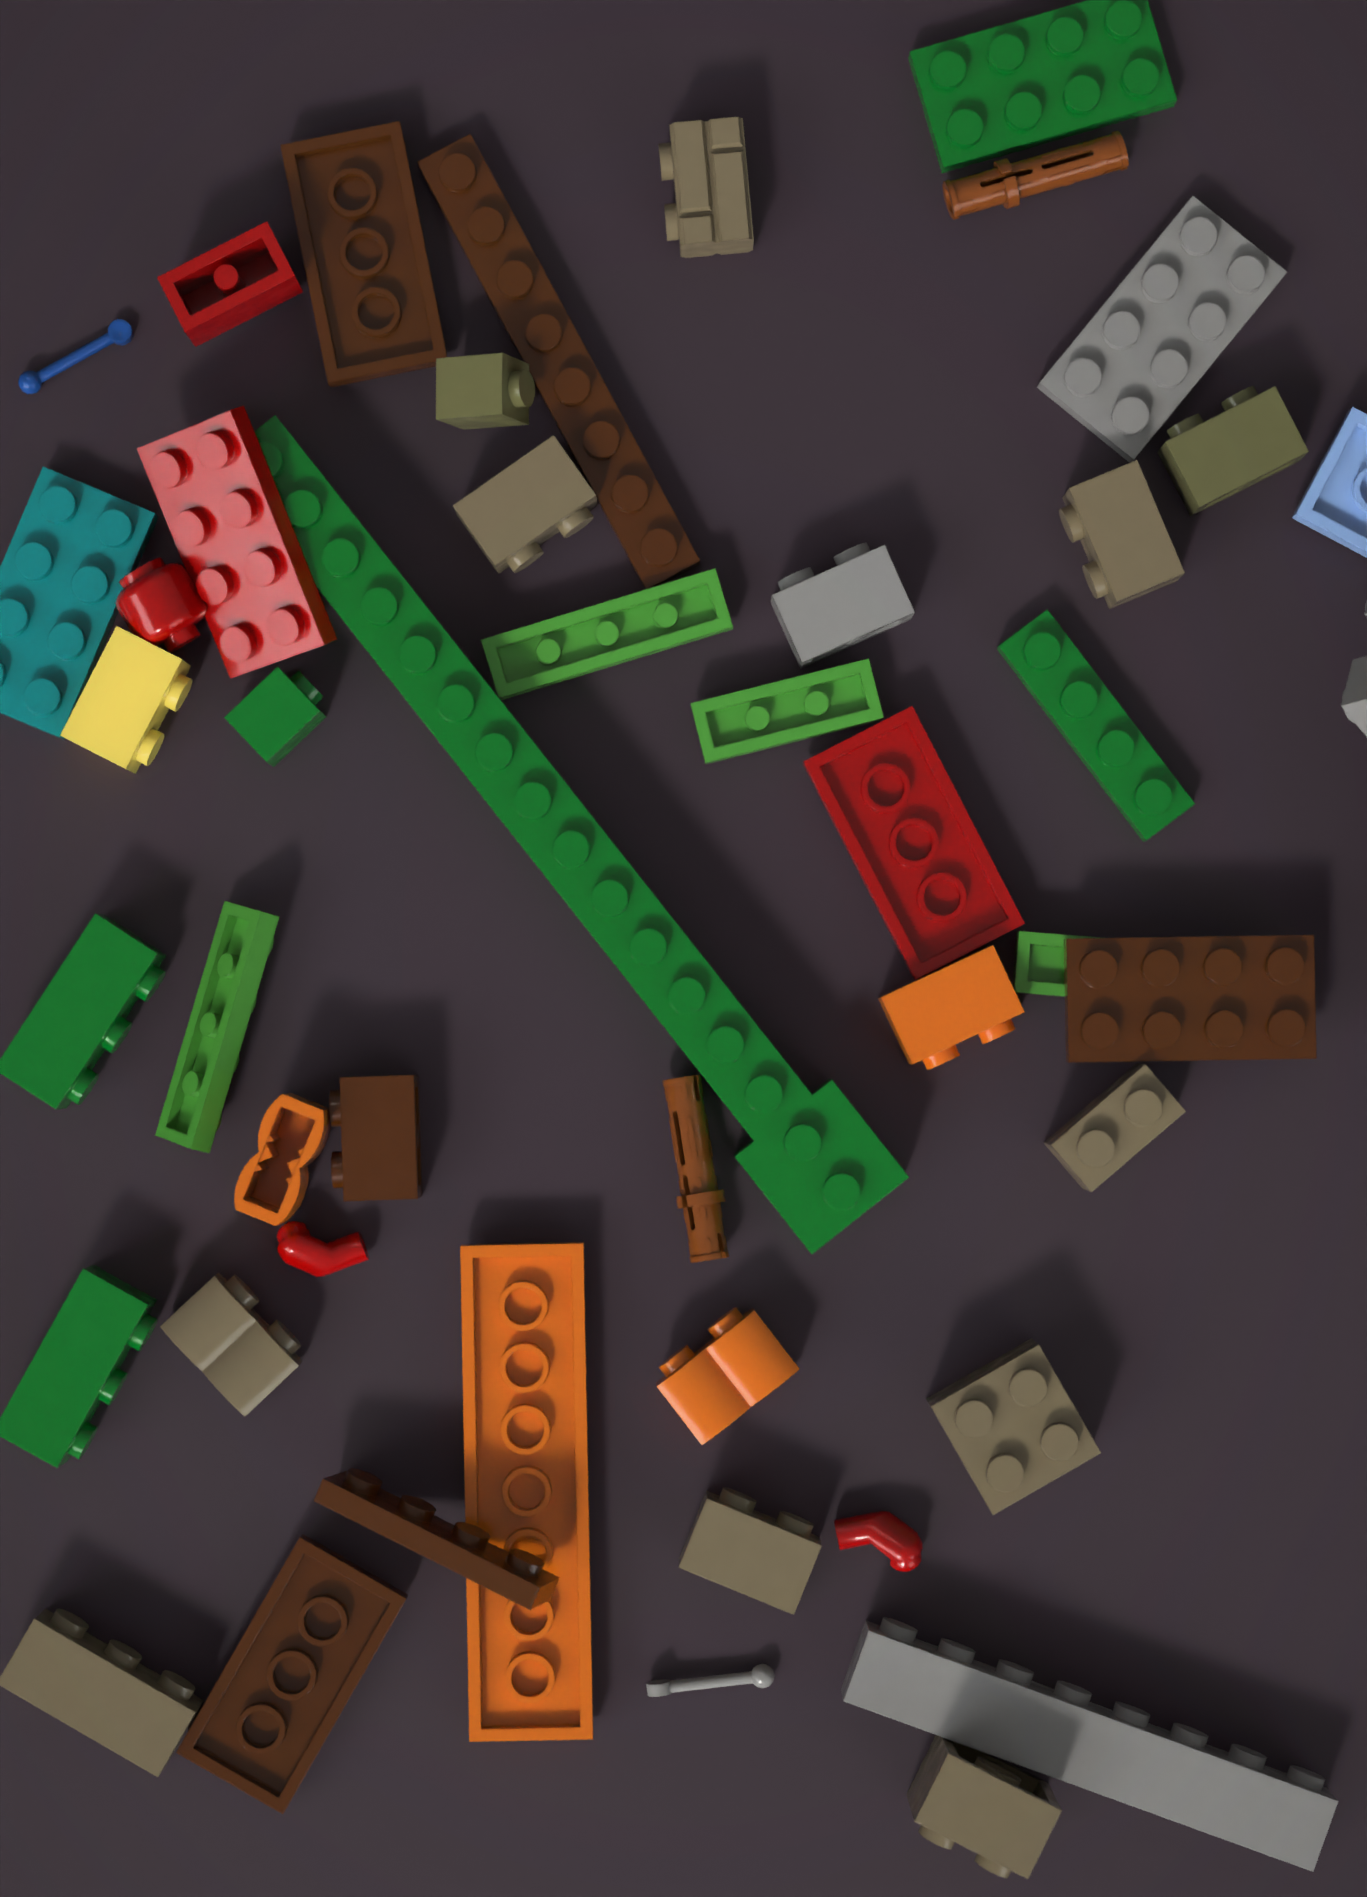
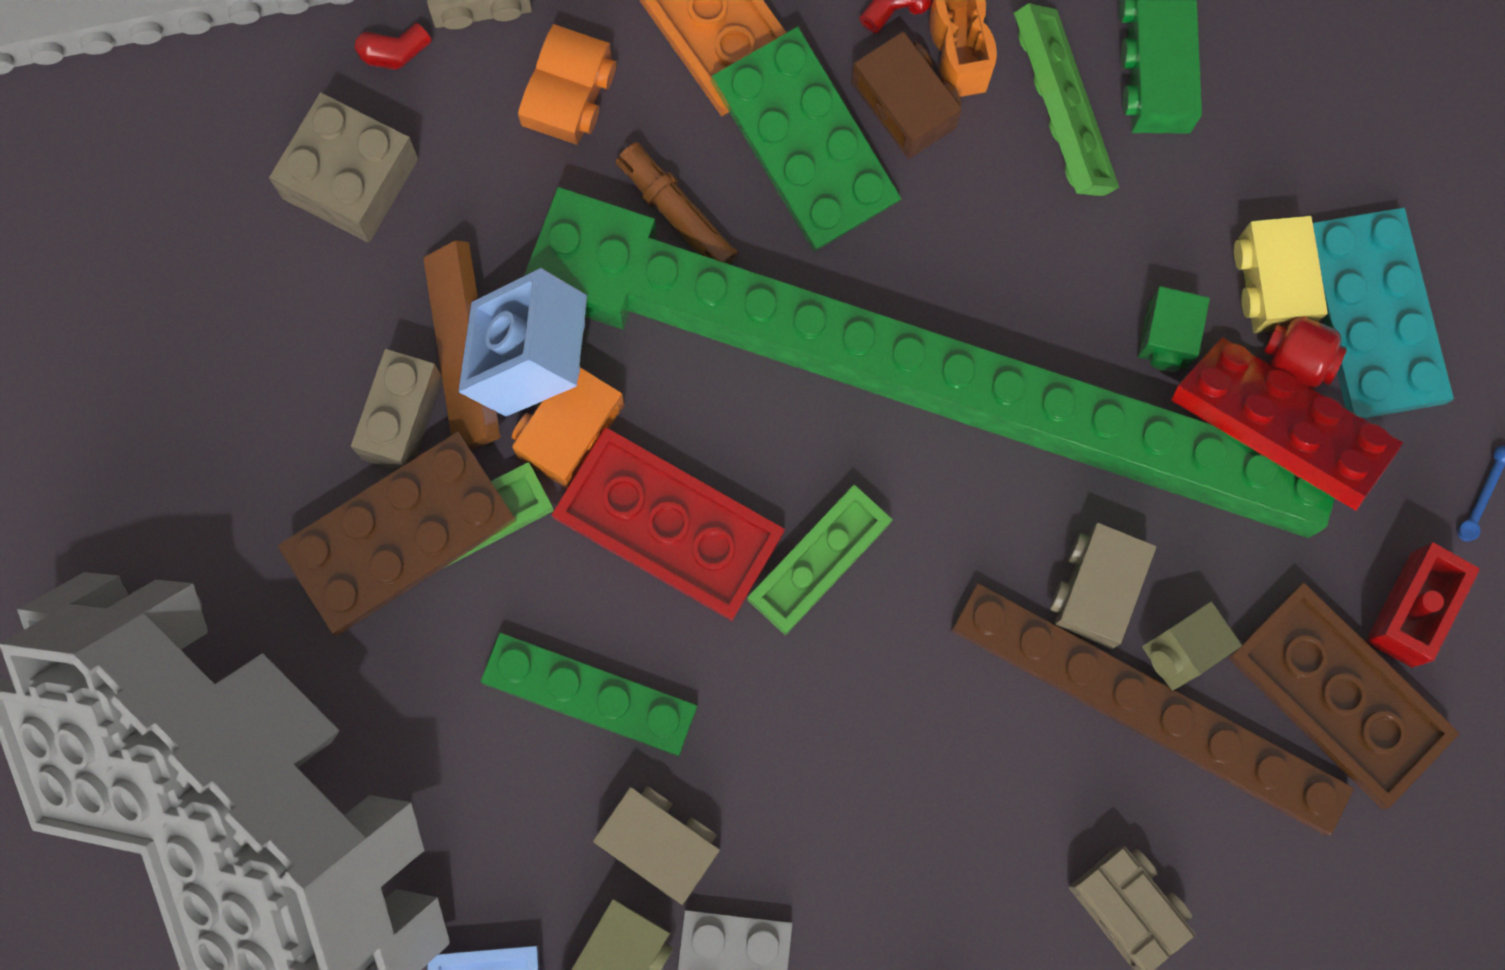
camera: 140 degrees right, 10 degrees down
(517, 1155) = (805, 139): none -> green plate
(607, 634) = (983, 533): bright green plate -> none
(841, 604) = (830, 660): light grey brick -> none
(950, 1106) = (523, 343): none -> light blue brick
(1007, 1159) = (450, 294): none -> dark orange tile

